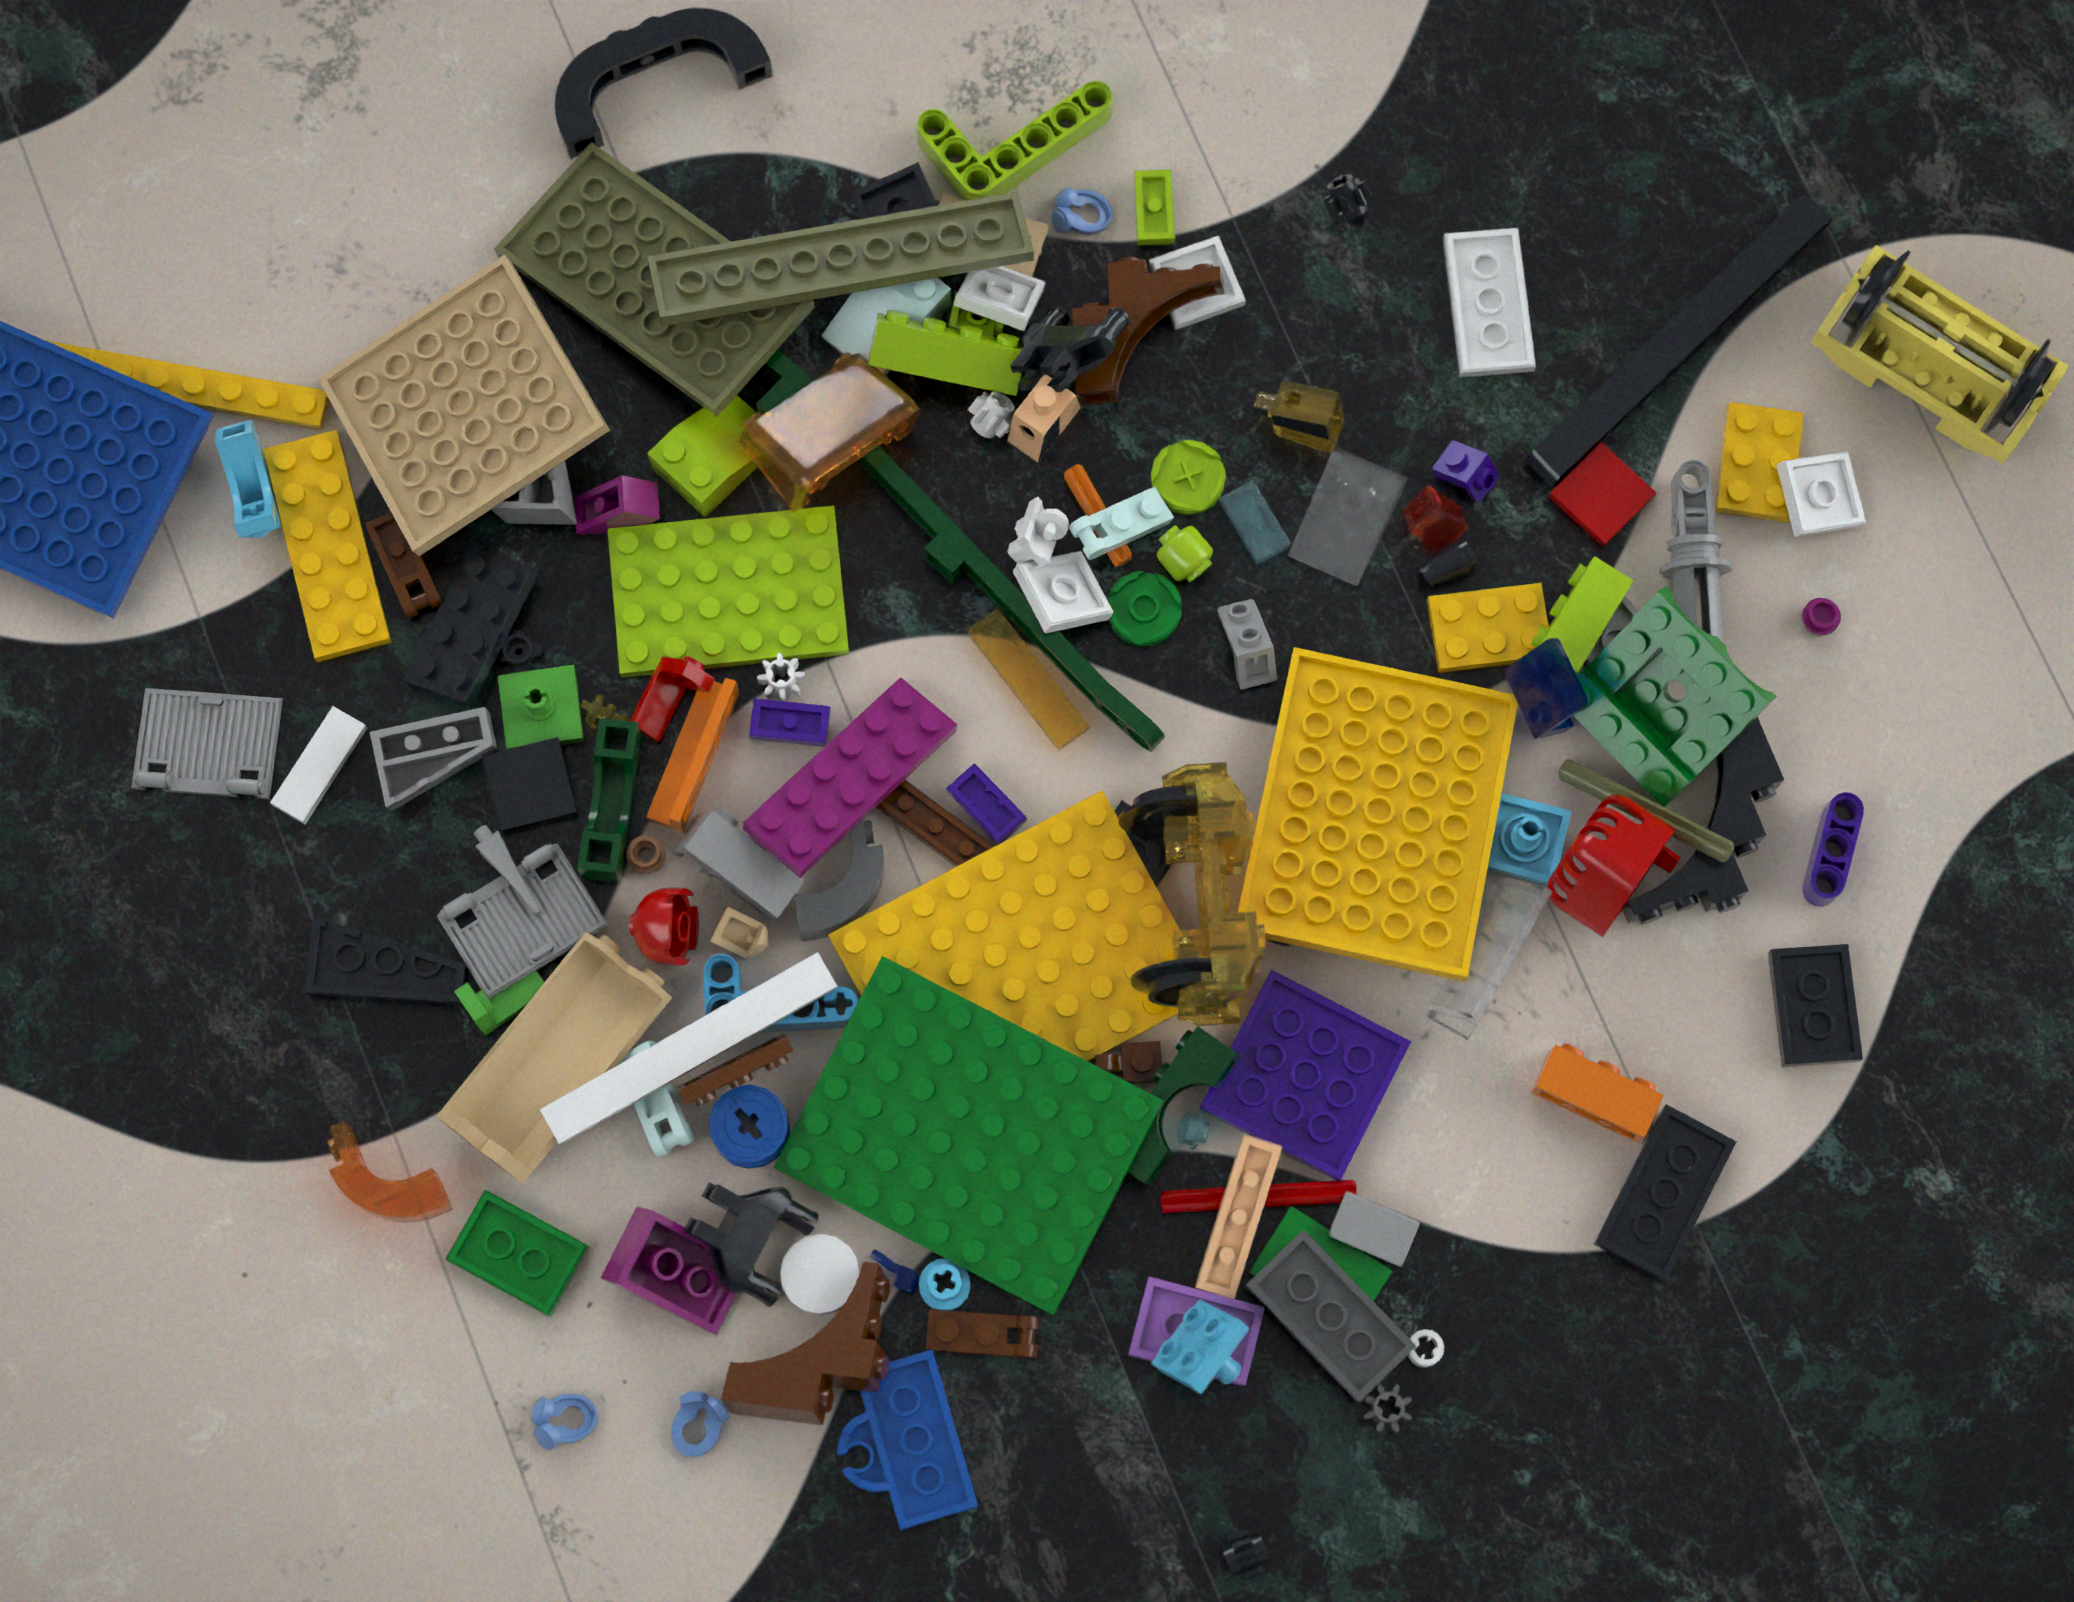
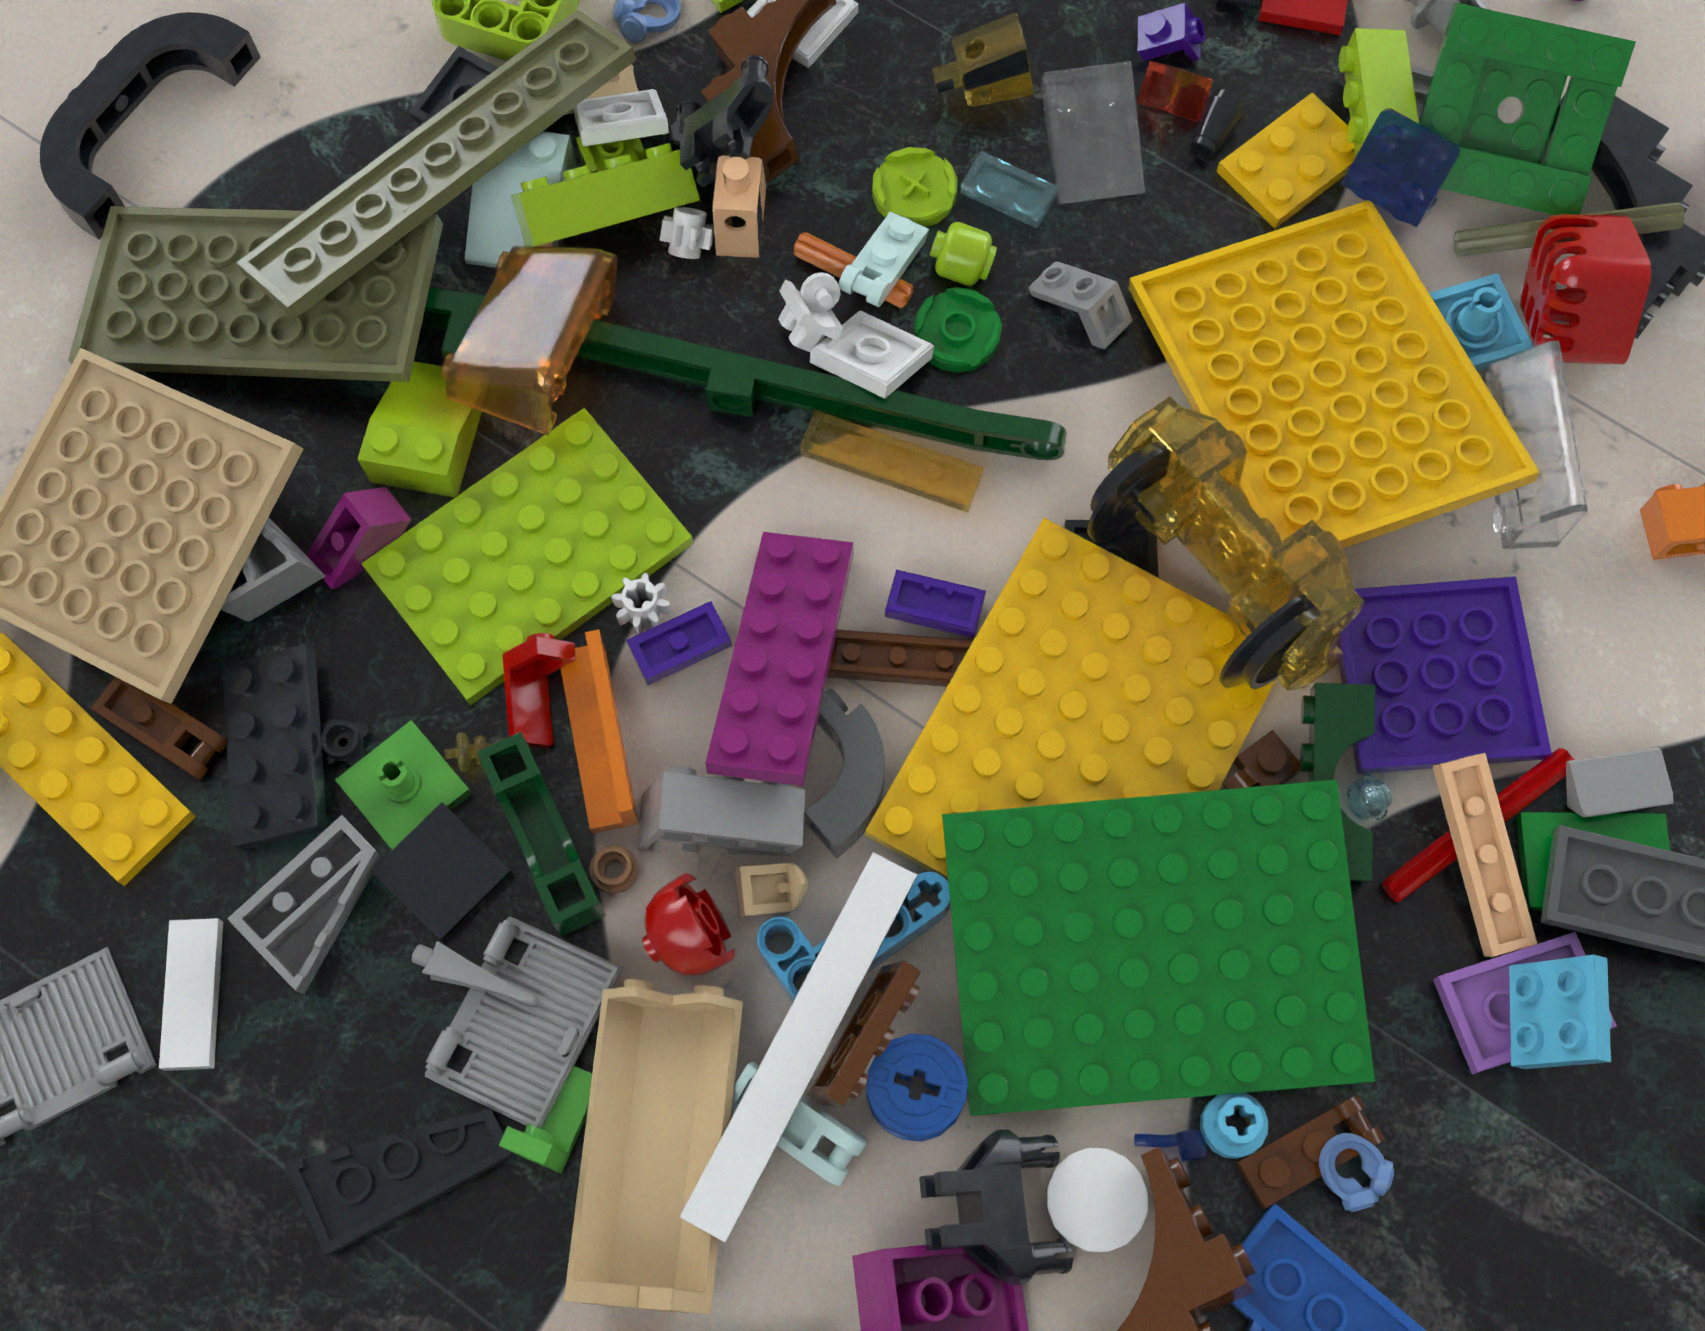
camera: 30 degrees left, 5 degrees down
(987, 1372) = (1373, 1164): none -> medium blue piece

